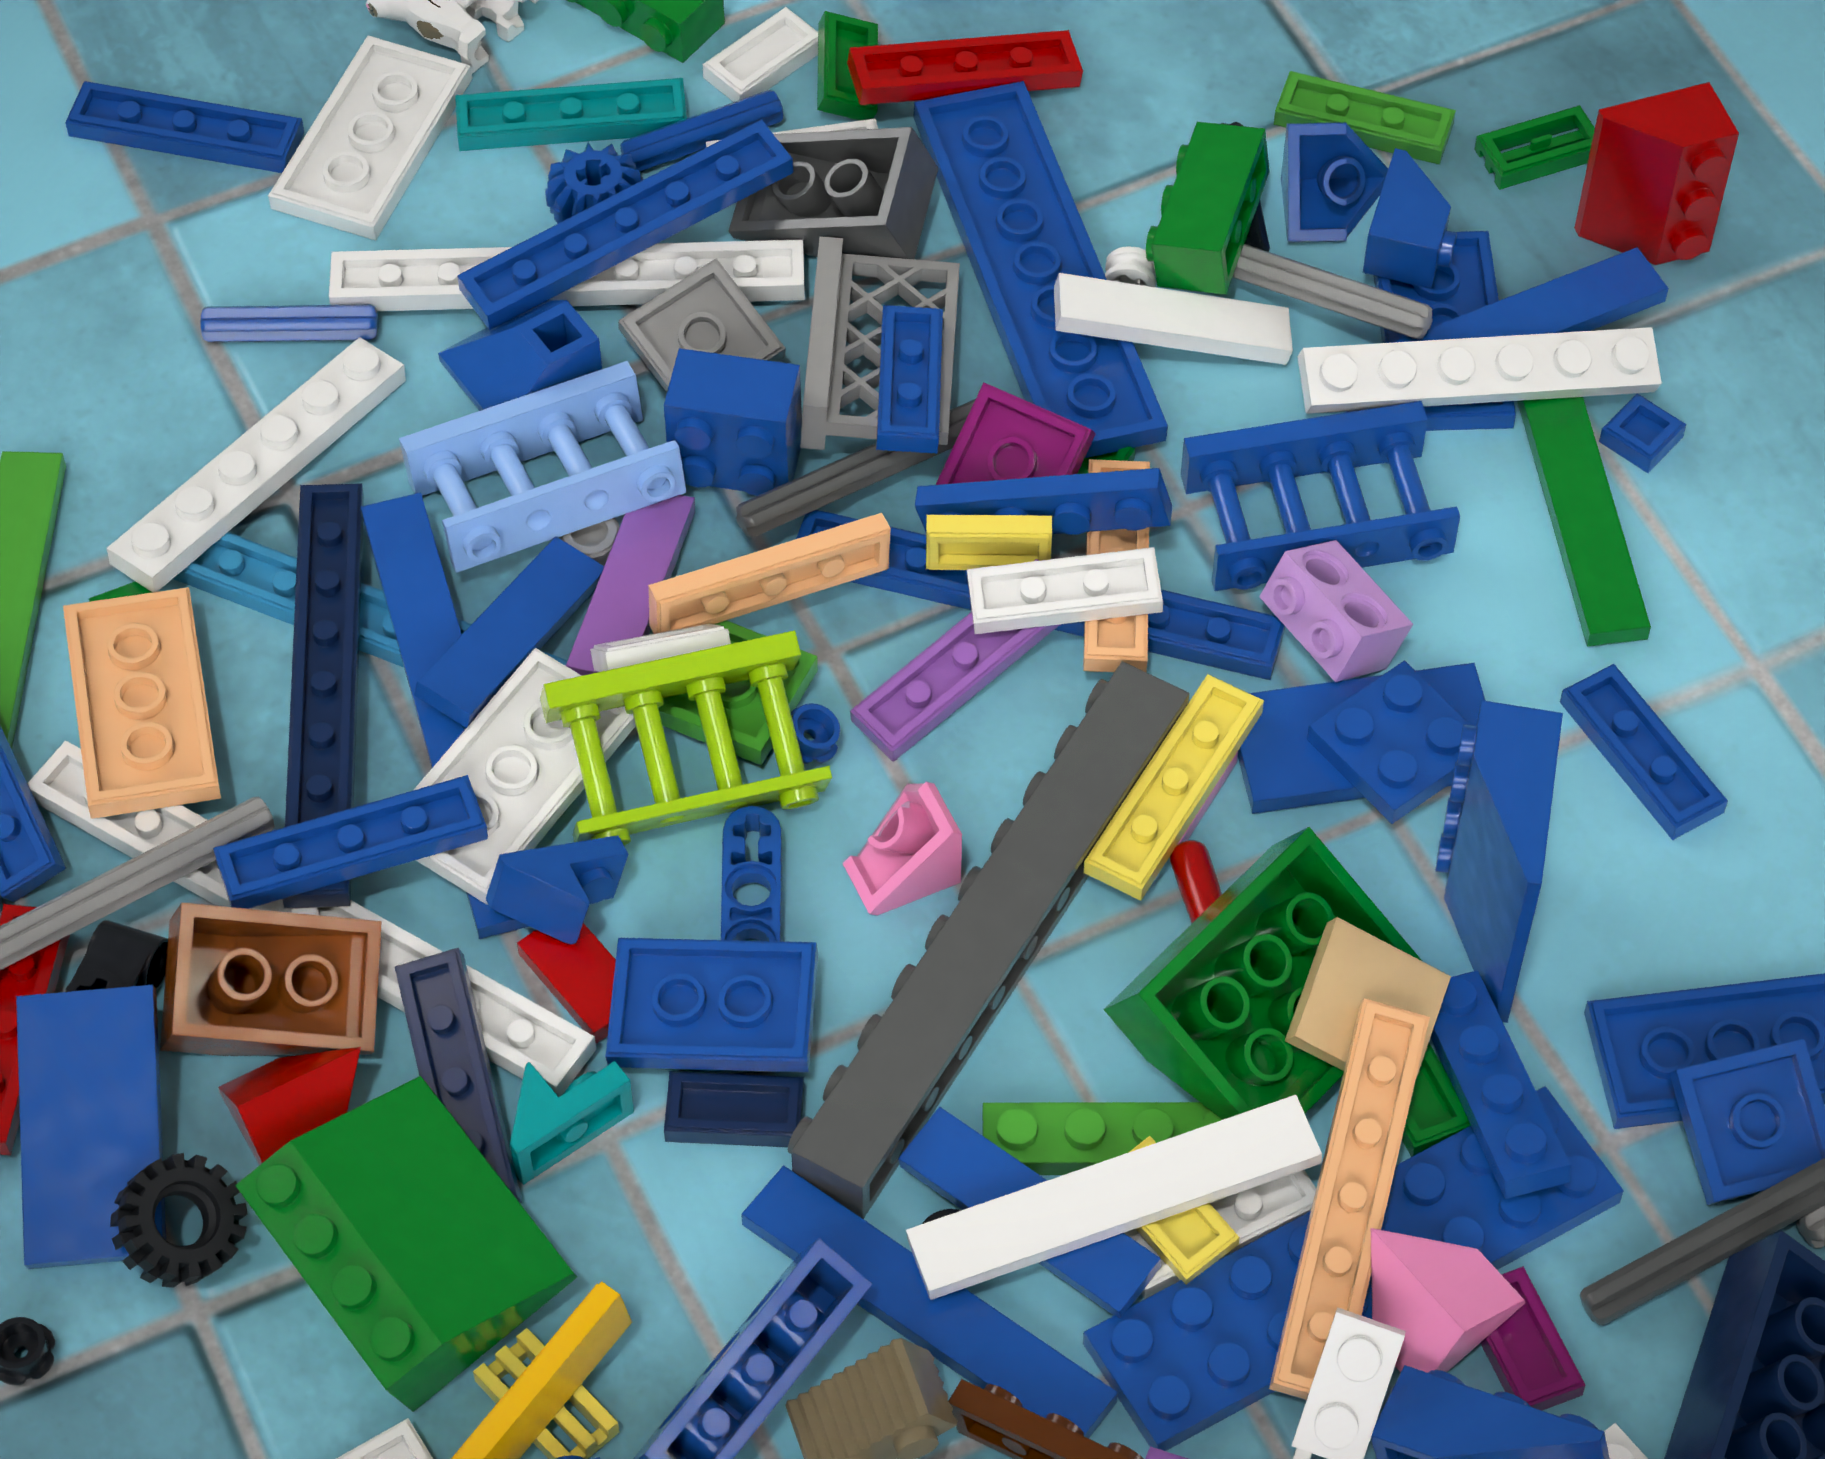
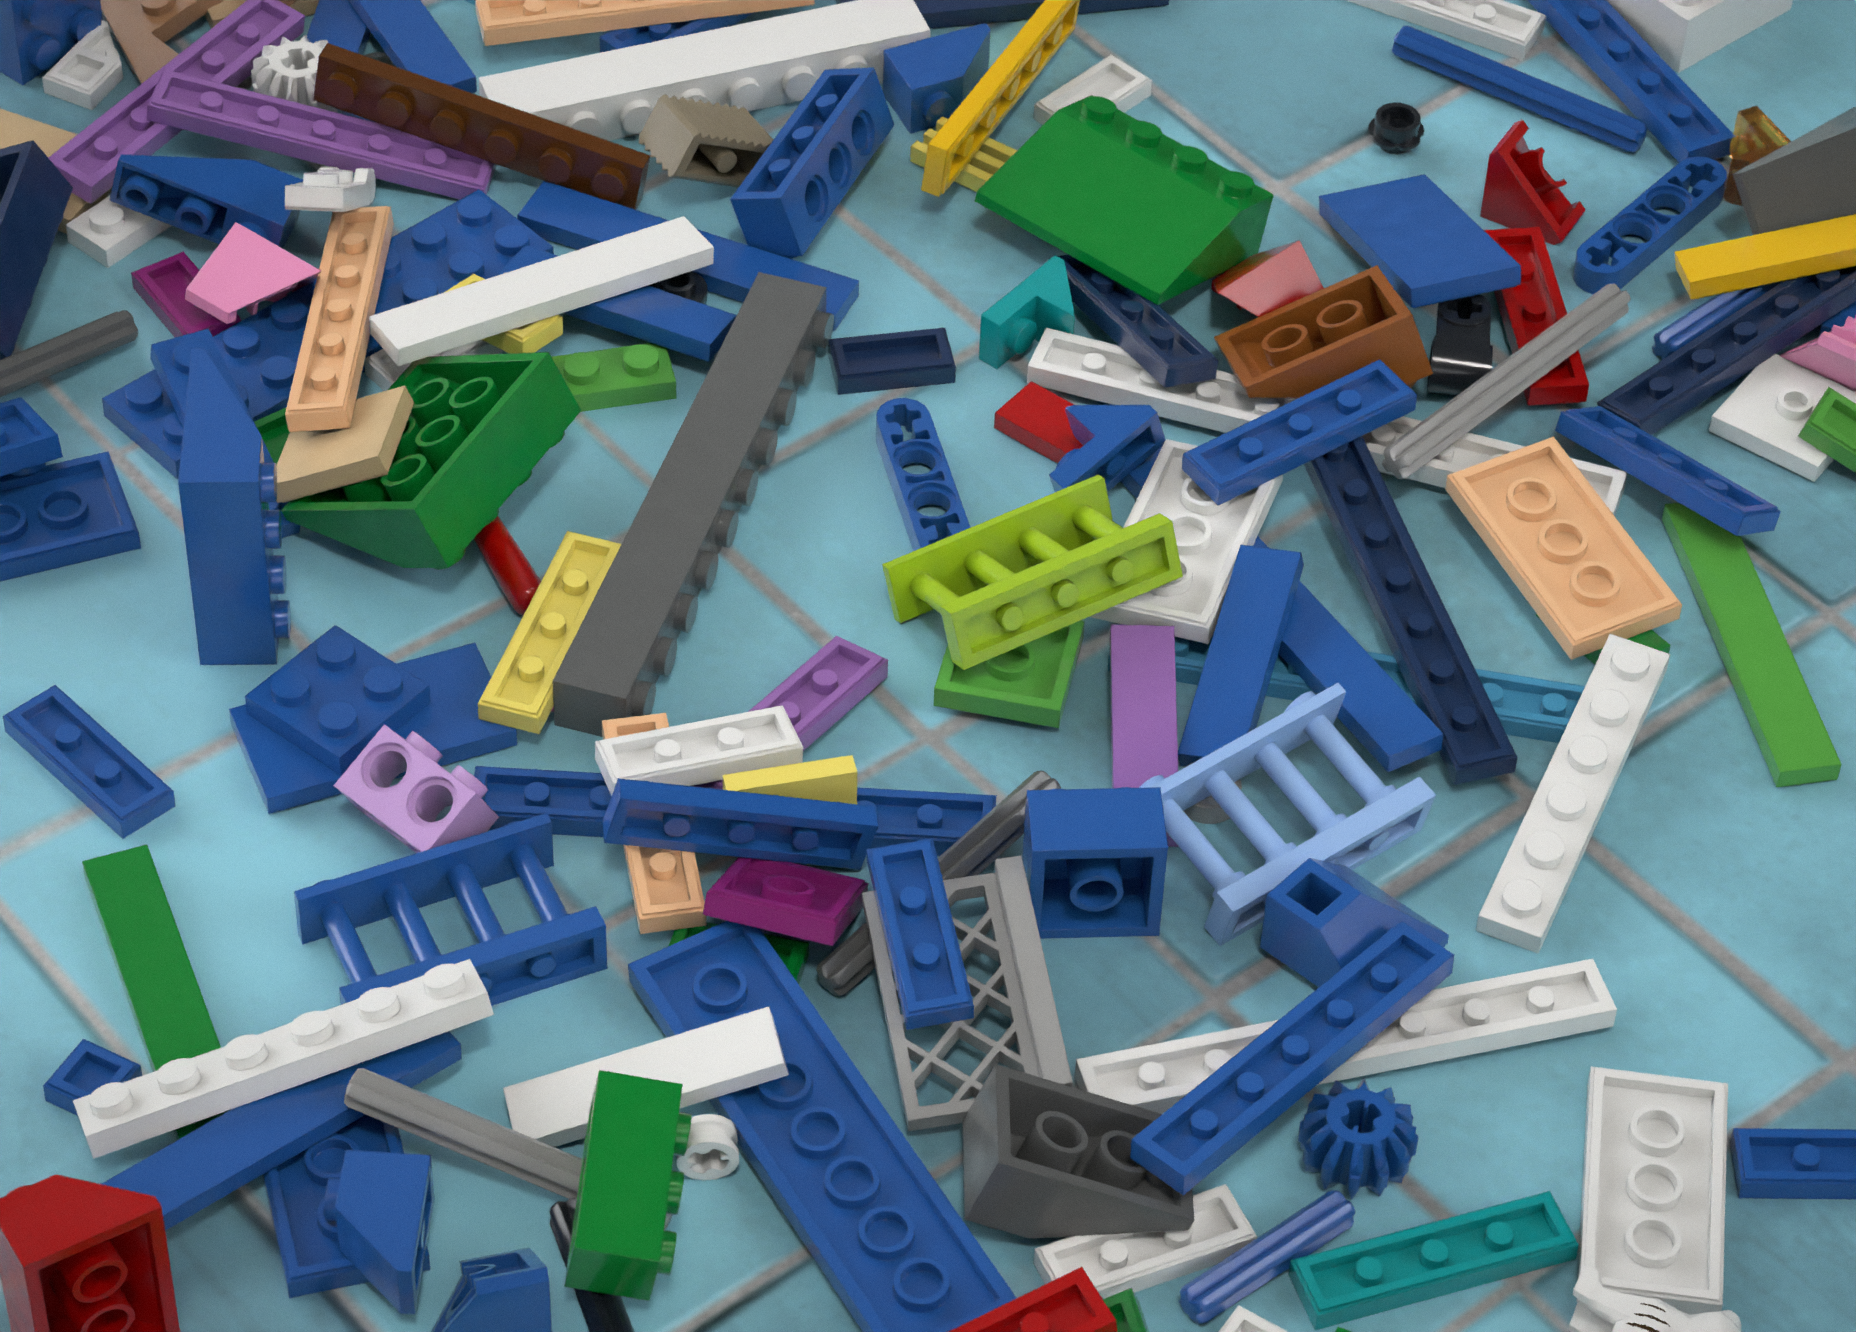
camera: 165 degrees right, 10 degrees down
(146, 1245) = (1314, 190): black tyre -> none
(288, 323) = (1637, 947): axle -> none
(657, 646) = (1082, 622): white tile -> none
(701, 315) = (1168, 986): light grey plate -> none
(712, 1004) = (932, 396): blue tile -> none
(771, 575) = (1000, 718): light nougat tile -> none
(823, 728) = (918, 634): blue plate -> none
(909, 853) = (794, 558): bright pink slope -> none

